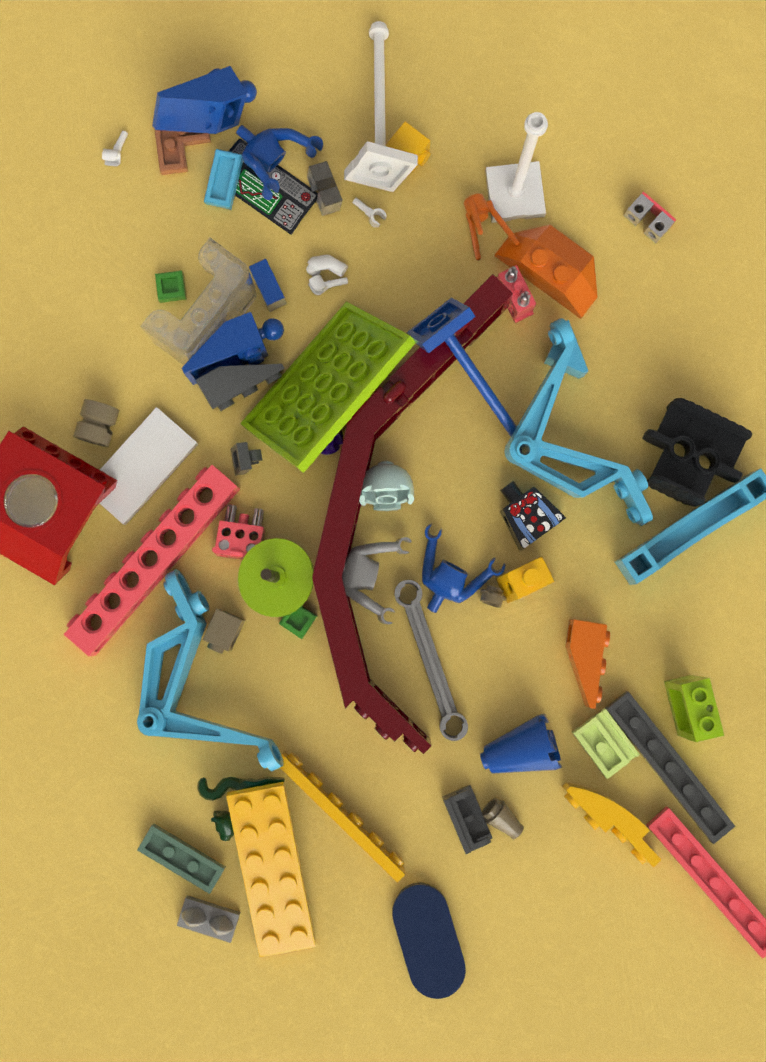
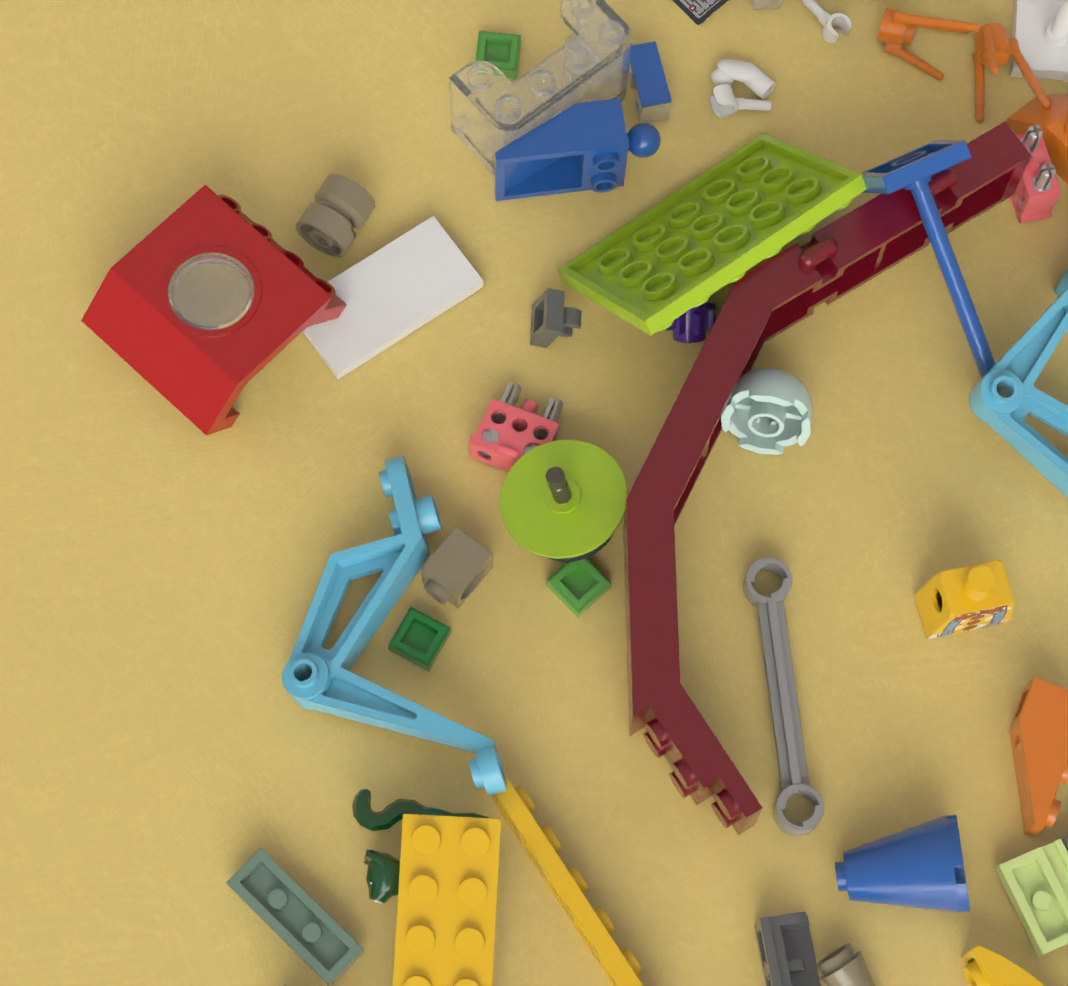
camera: 10 degrees right, 15 degrees down
(80, 628) = (472, 384): coral brick -> none
(213, 675) = (419, 639): none -> green tile
(230, 381) = (563, 202): dark grey slope -> none
(361, 573) = (703, 530): light grey piece -> none
(416, 208) = (900, 28): none -> orange plant
(447, 579) = (838, 574): blue piece -> none
(492, 596) = (904, 619): dark tan plate -> none
(528, 514) = (989, 505): torso -> none

